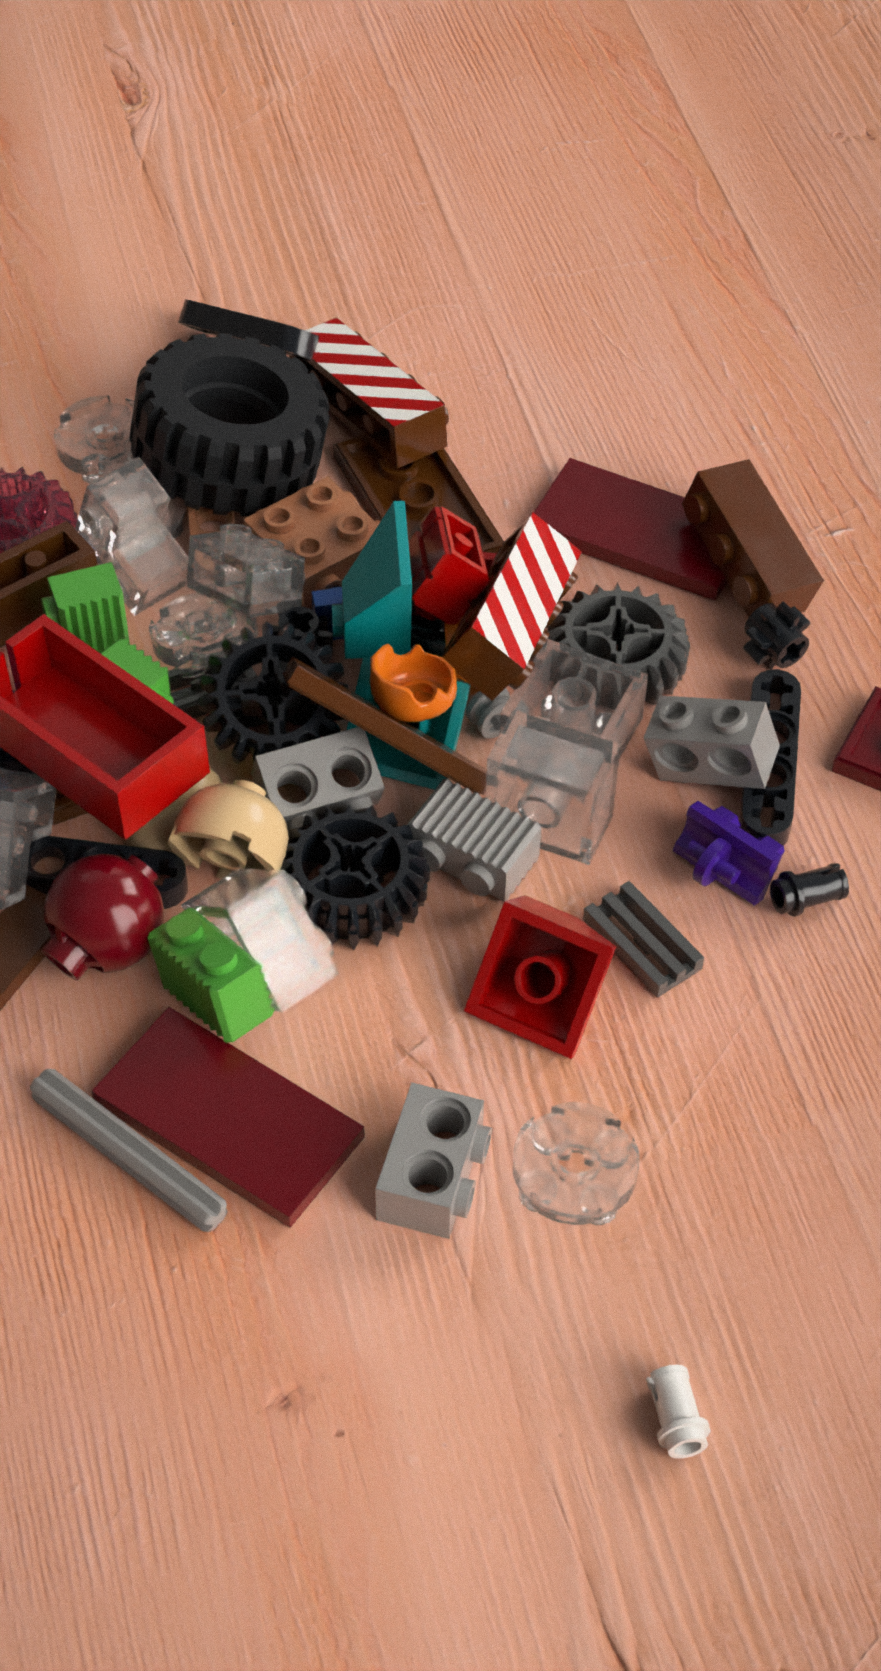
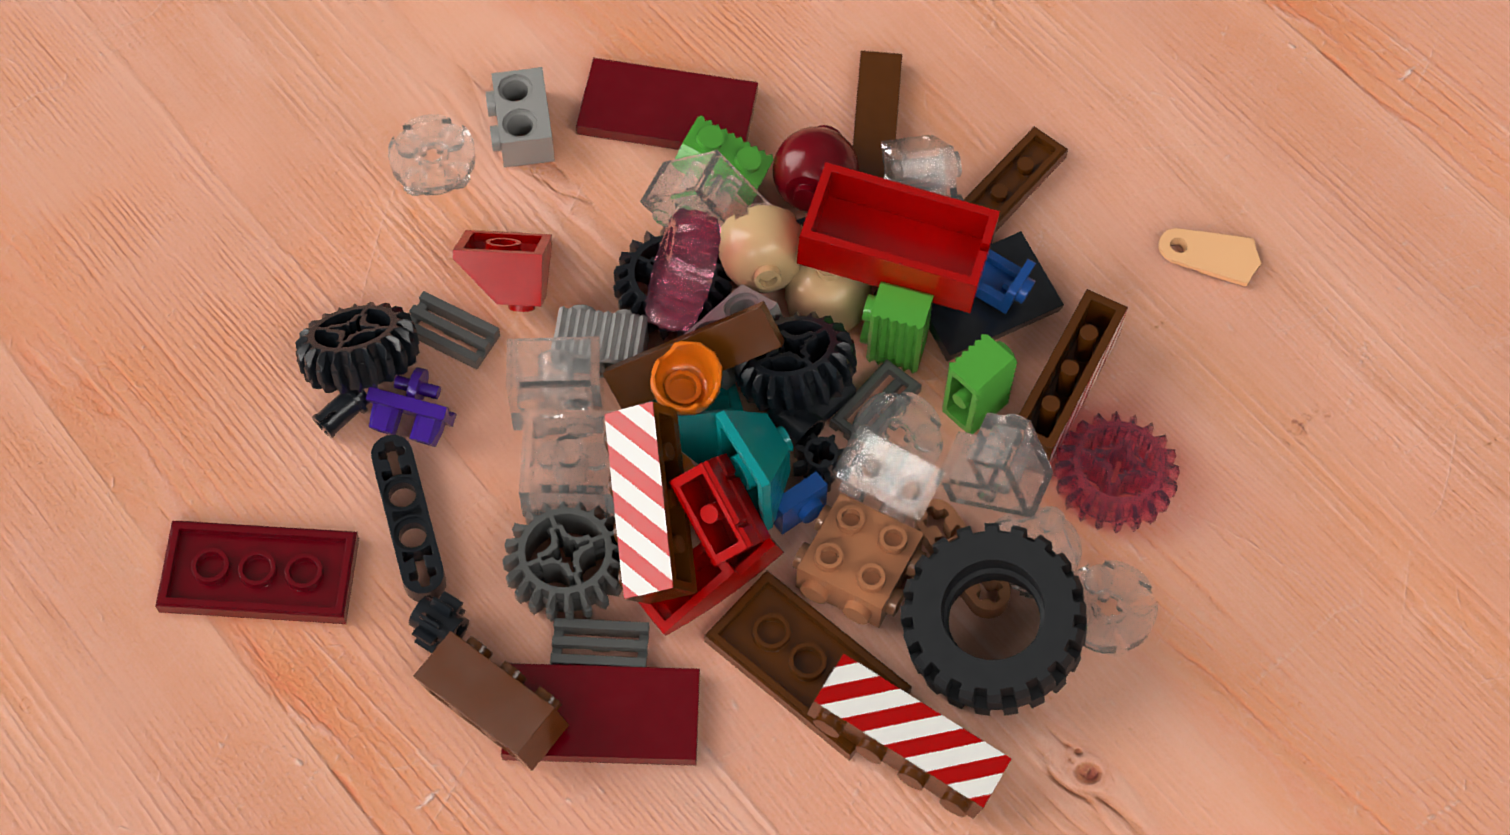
camera: 155 degrees right, 10 degrees up
(129, 1150) = (715, 63): light grey axle -> none
(217, 320) = (1057, 747): black beam -> none
(352, 780) = (683, 270): none -> clear pink gear
(617, 568) = (600, 628): none -> dark grey tile
(681, 1426) = (310, 35): white pin -> none
(712, 741) = (451, 477): light grey brick -> none
(795, 928) = (357, 347): none -> black gear

